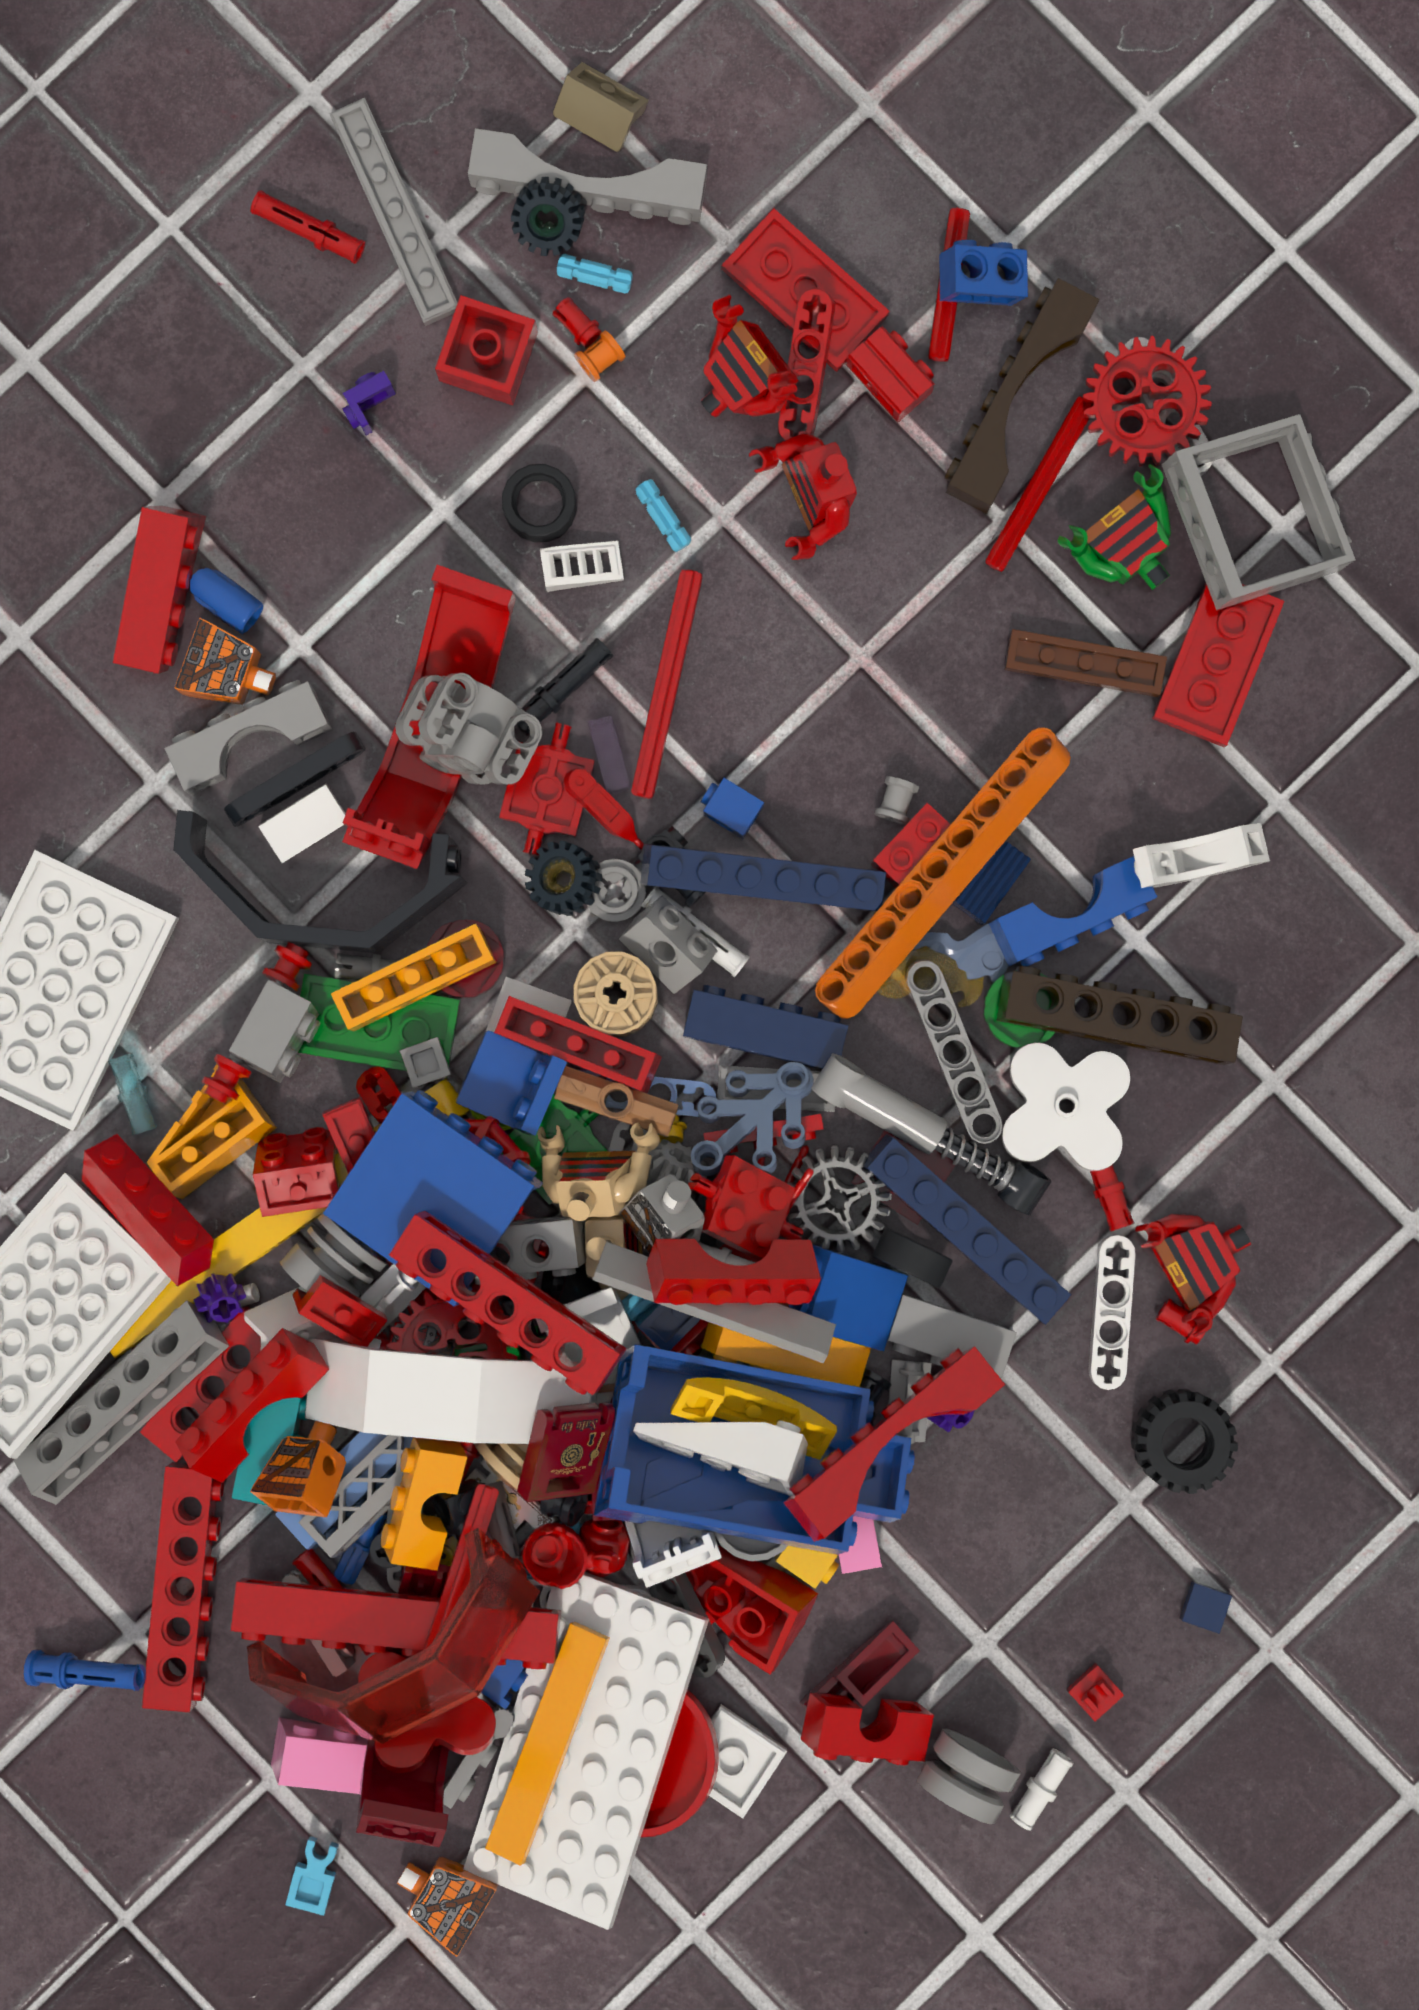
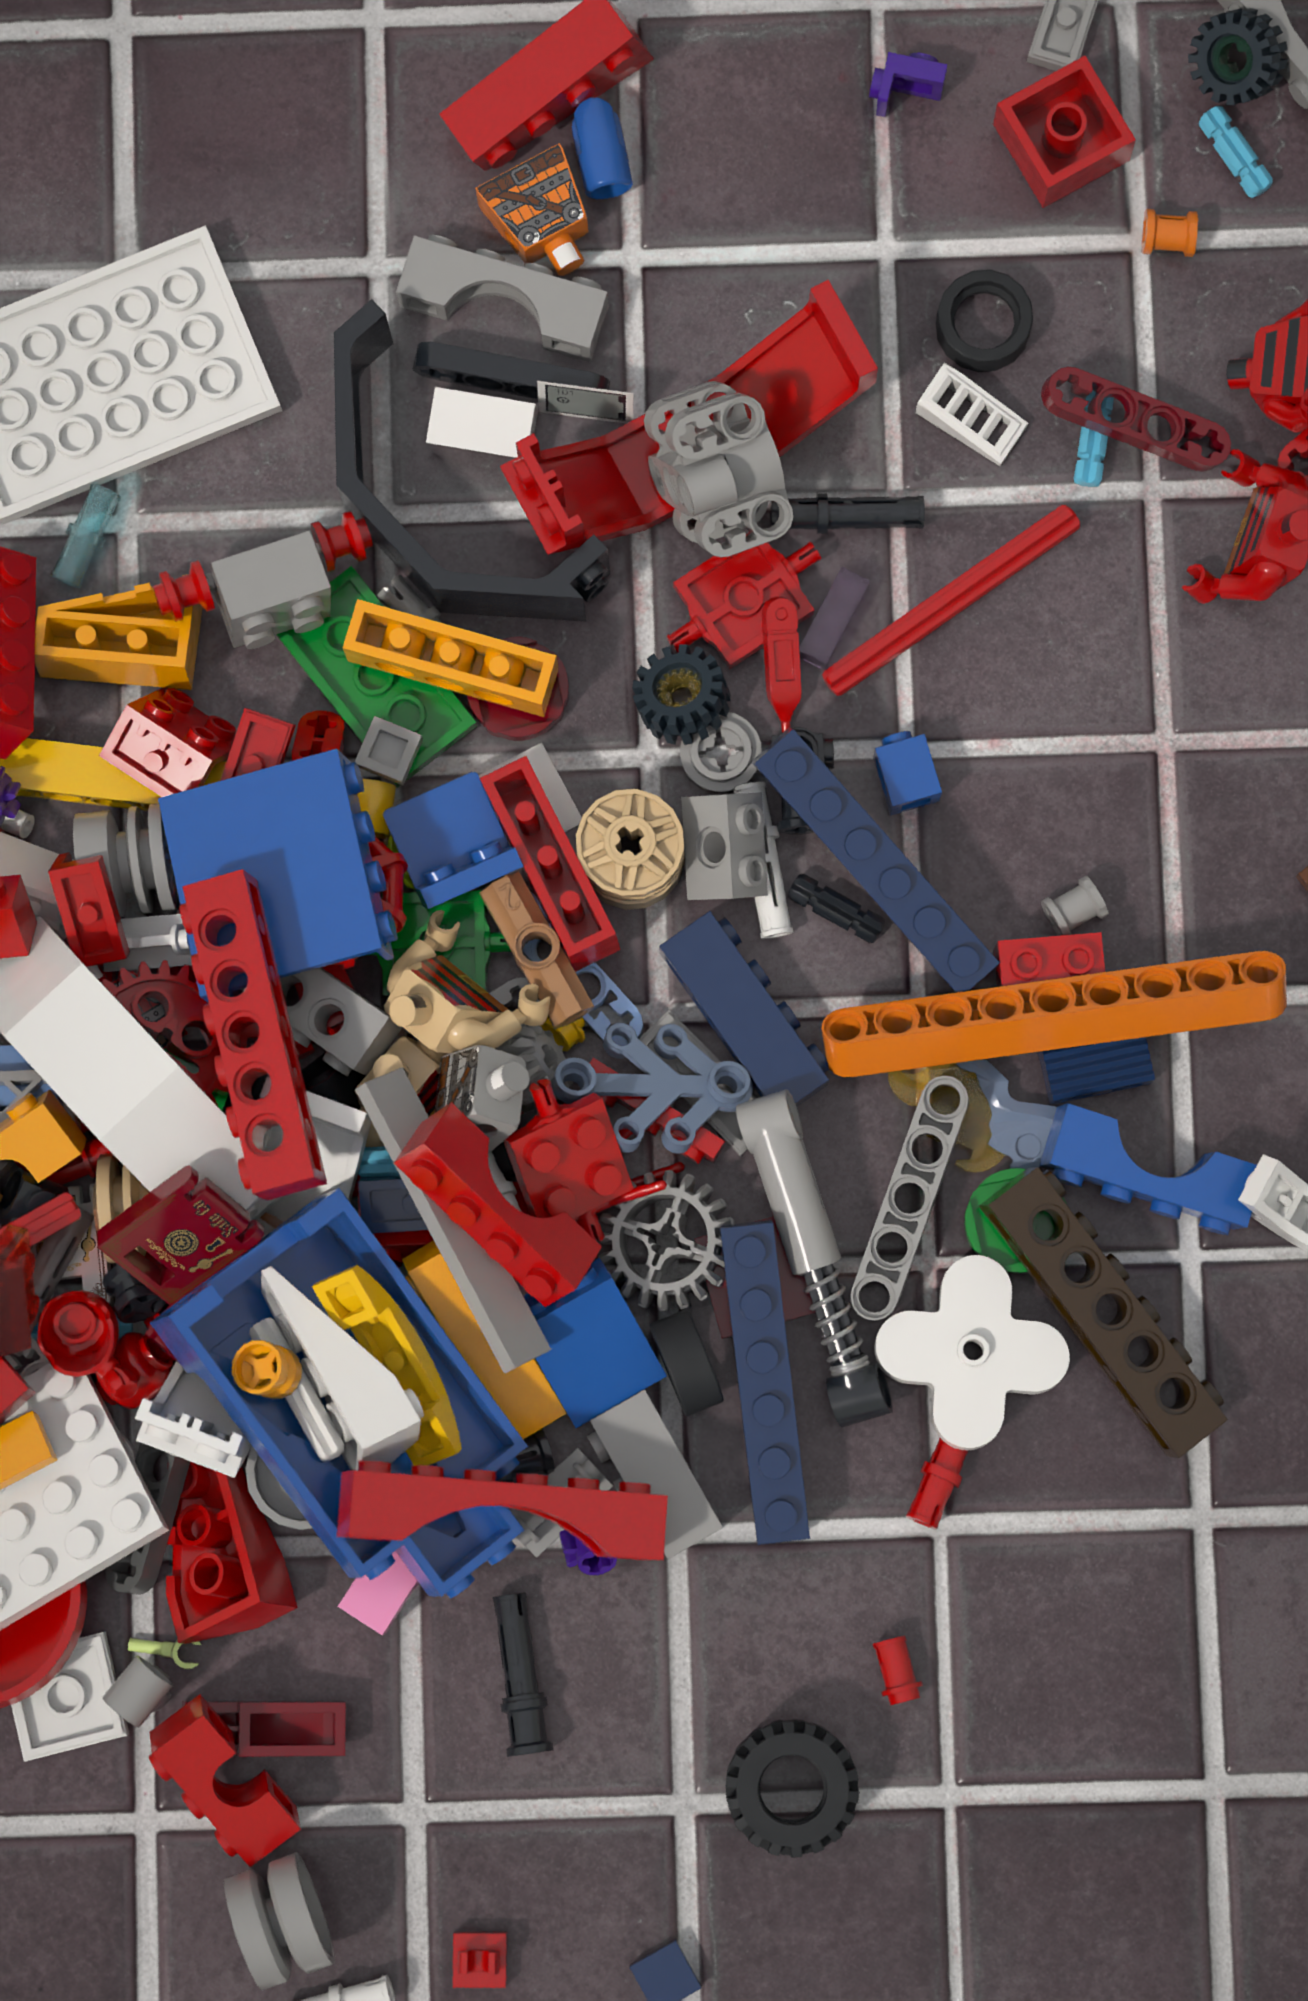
camera: 45 degrees right, 5 degrees down
(353, 757) = (585, 402): none -> sticker
(575, 320) = (1176, 182): red pin -> none
(680, 1487) = (255, 1365): none -> light orange wheel
(681, 488) = (1138, 410): none -> dark red beam
(713, 1477) = (304, 1401): none -> white axle
(761, 921) = (836, 908): none -> black axle
(762, 1683) = (164, 1648): none -> yellowish green hand
(774, 1723) = (139, 1691): none -> light grey piece
(808, 1564) = (315, 1568): yellow brick -> none
(990, 1528) = (522, 1701): none -> black pin
(1106, 1311) = (831, 1592): white beam -> none
(1196, 1262) = (964, 1622): torso -> none

